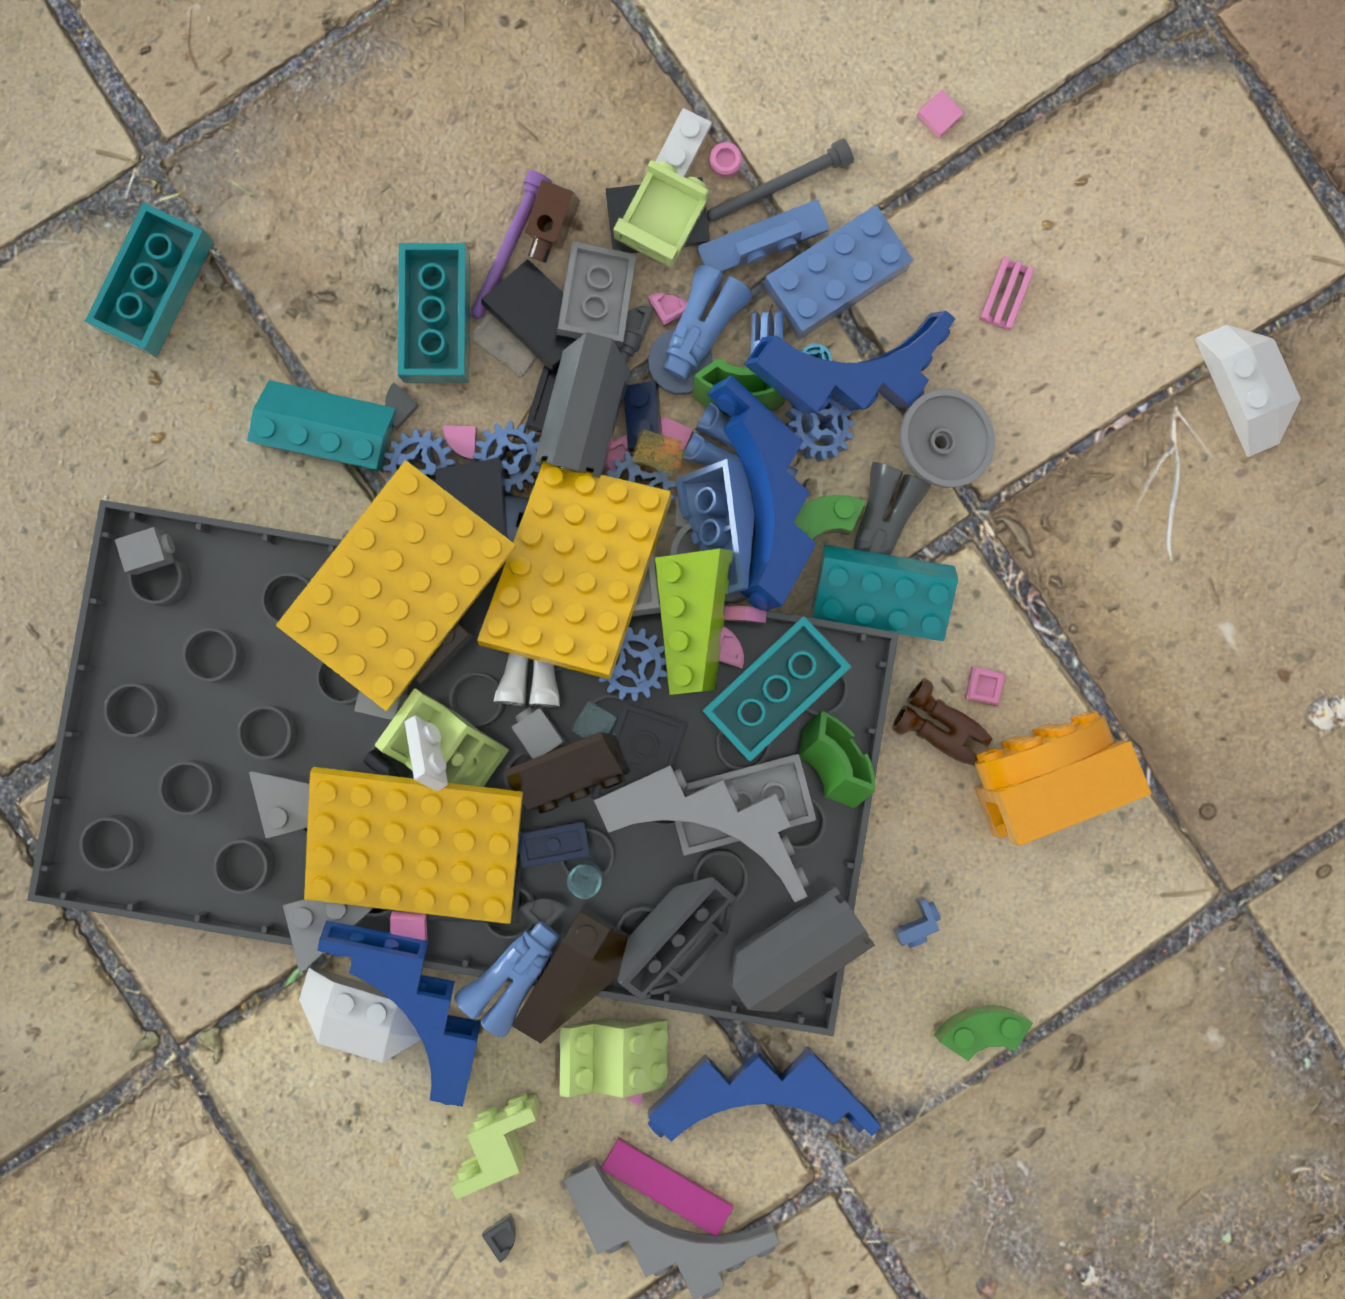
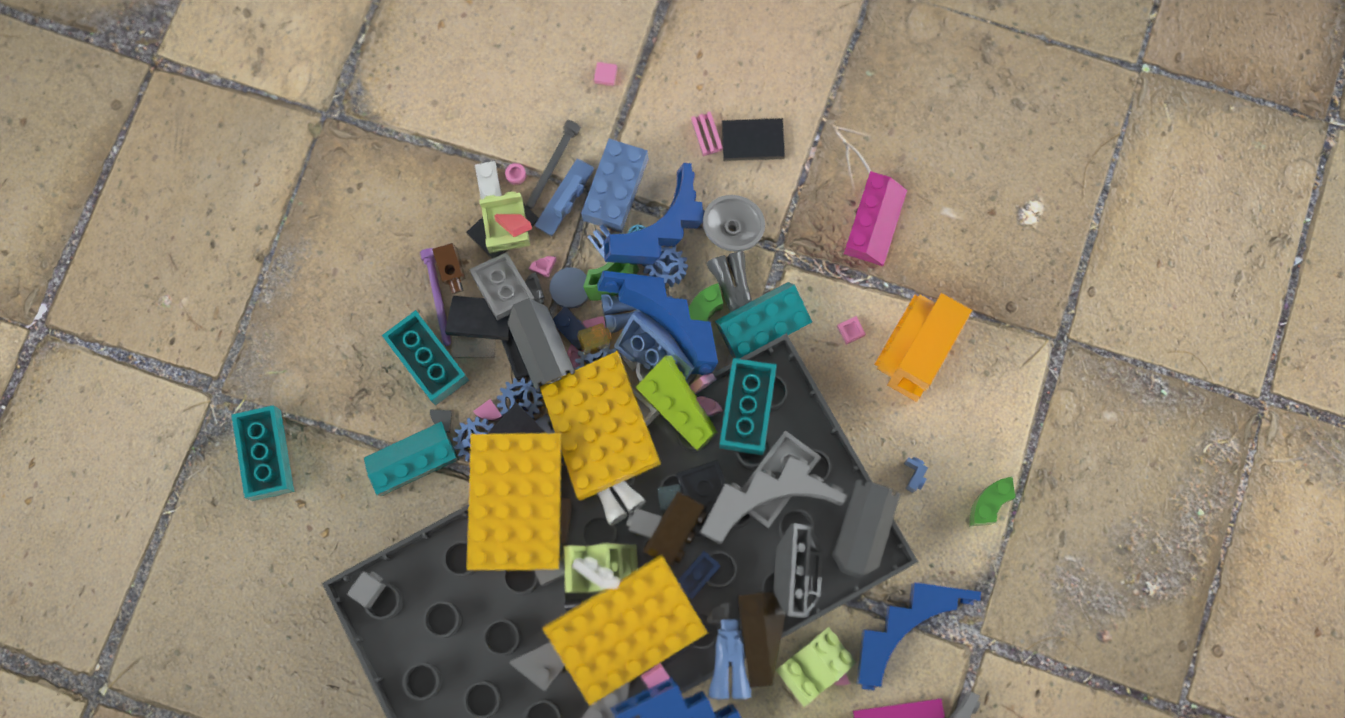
camera: 35 degrees left, 10 degrees down
(586, 875) = (728, 580): clear light blue wheel -> none
(646, 656) = (669, 442): medium blue gear -> none
(671, 225) = (513, 223): none -> coral tile
(695, 337) = (567, 270): medium blue piece -> none
(838, 760) = (808, 420): bright green brick -> none
(960, 724) = (853, 358): reddish brown piece -> none
(1059, 347) = (753, 139): none -> black tile
(1130, 570) = (876, 219): none -> dark pink slope
(1251, 384) = (860, 87): white wedge -> none

